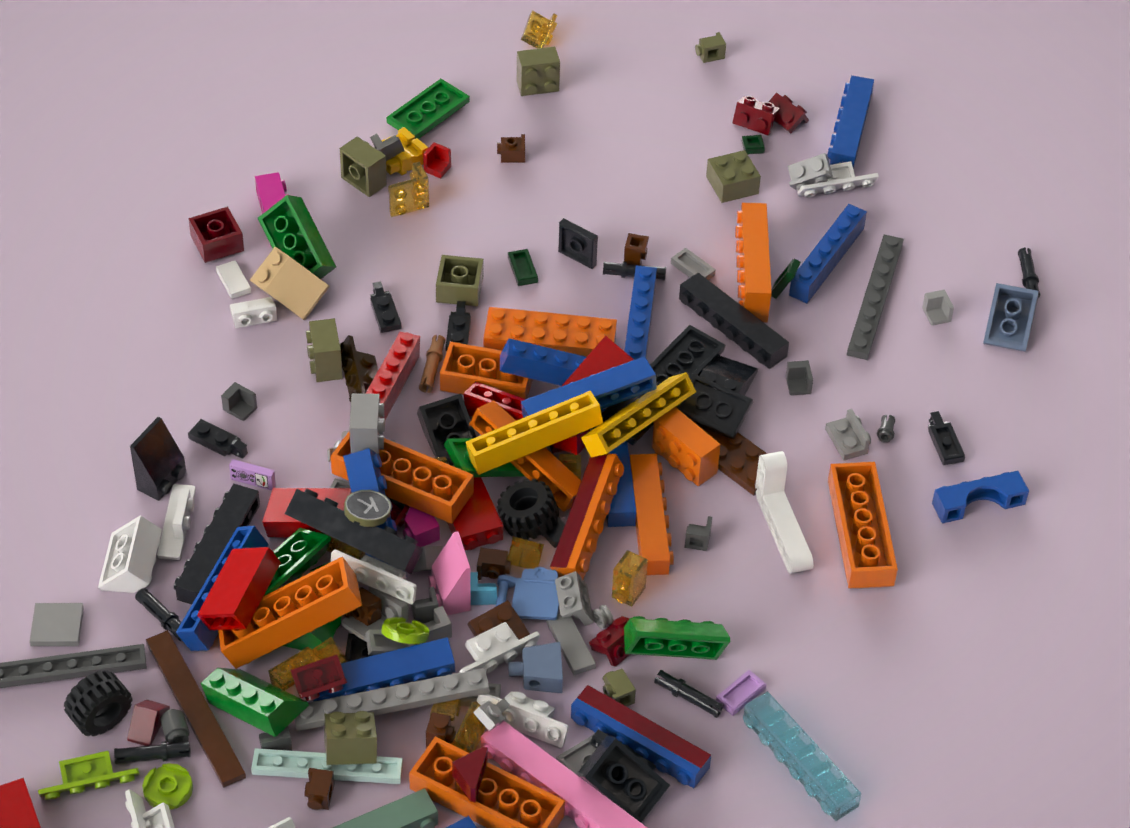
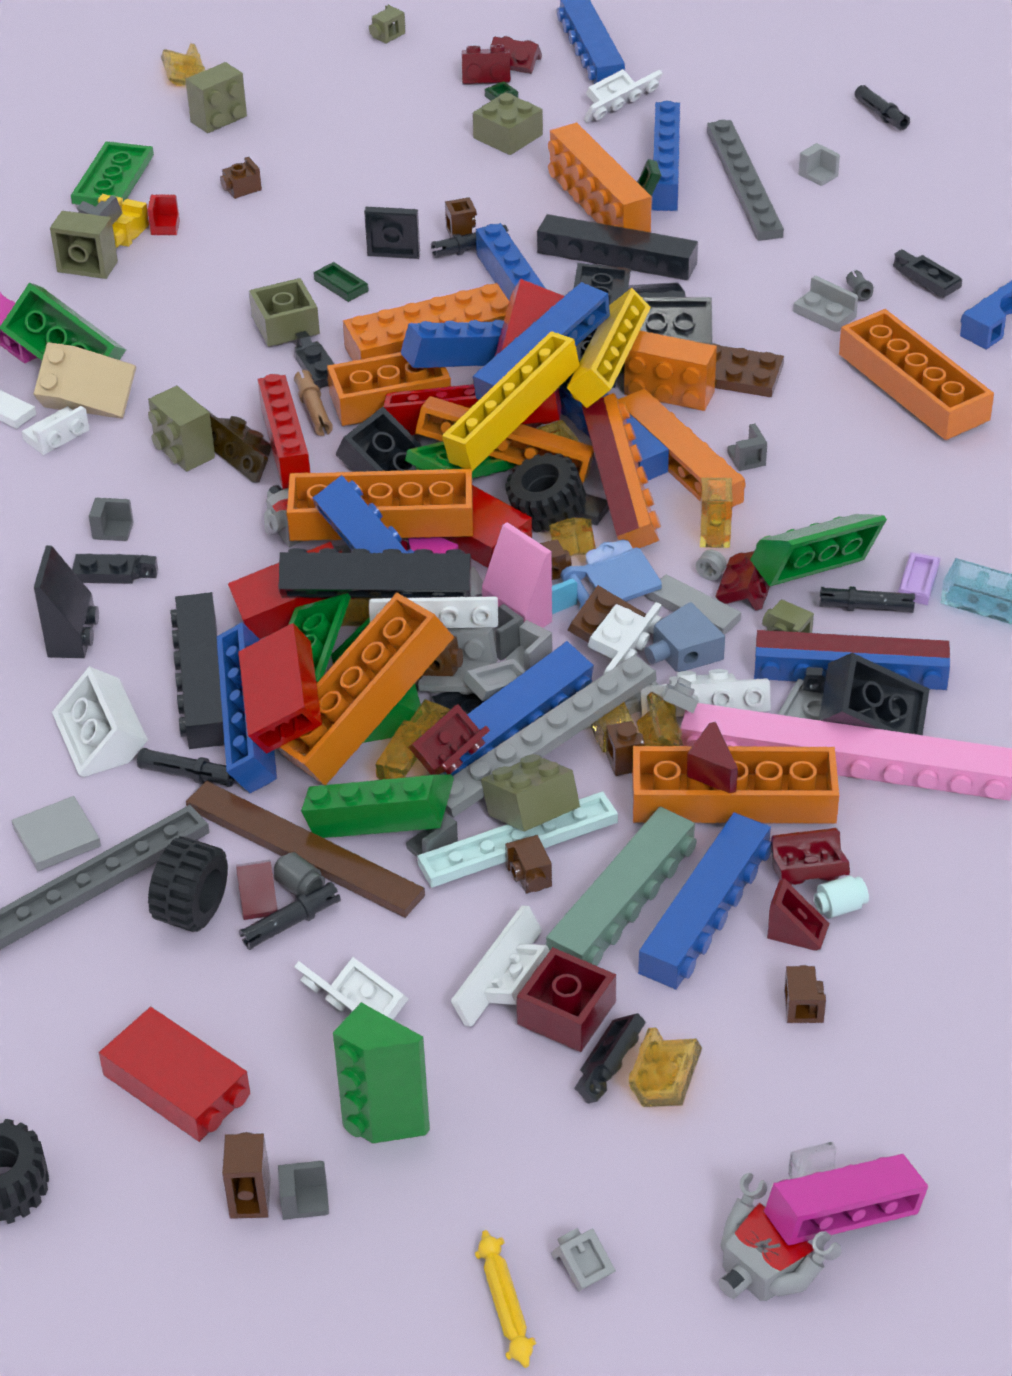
camera: 25 degrees left, 5 degrees down
(86, 772) = (223, 969): lime bracket -> none
(175, 786) = (333, 943): lime tile -> none
(176, 521) = (129, 662): white bracket -> none
(252, 474) = (186, 583): lavender tile -> none
(366, 423) = (314, 454): light grey brick -> none
(367, 507) = (382, 537): tile -> none
(384, 309) = (212, 373): black hinge -> none
(405, 632) = (510, 656): lime tile -> none
(409, 194) = (162, 250): clear yellow bracket -> none
(574, 597) = (666, 557): light grey bracket -> none
(692, 264) = (525, 216): light grey tile -> none
(779, 514) = (818, 399): white beam -> none
(799, 377) = (731, 272): dark grey panel -> none
(810, 171) = (588, 90): light grey bracket -> none
(1011, 317) = (899, 145): sand blue slope -> none

